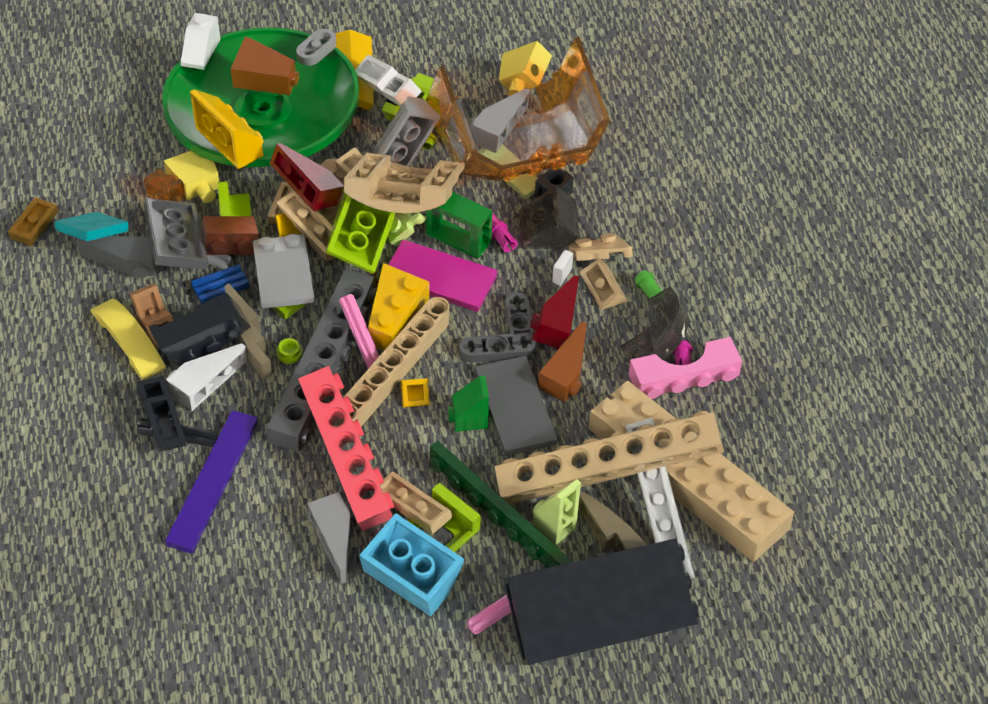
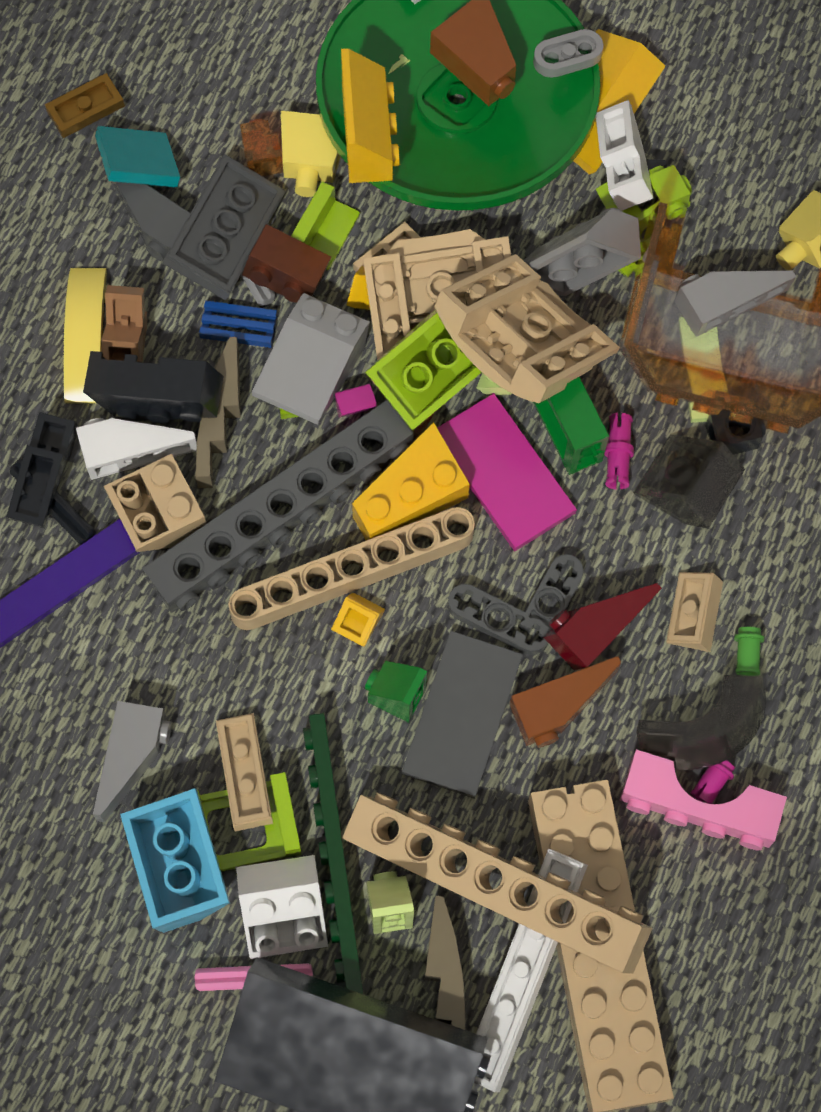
camera: 35 degrees right, 20 degrees up
(249, 391) = (156, 505): none -> tan slope
(289, 351) = (251, 470): lime plate -> none
(308, 179) = (419, 253): dark red slope -> none
(326, 282) = (355, 400): none -> dark pink slope
(359, 329) = (341, 500): bright pink axle -> none
(367, 511) = (199, 636): coral brick -> none
(492, 555) = (281, 906): none -> white slope
(562, 267) = (657, 557): white tile -> none
(600, 248) = (724, 559): tan wing -> none

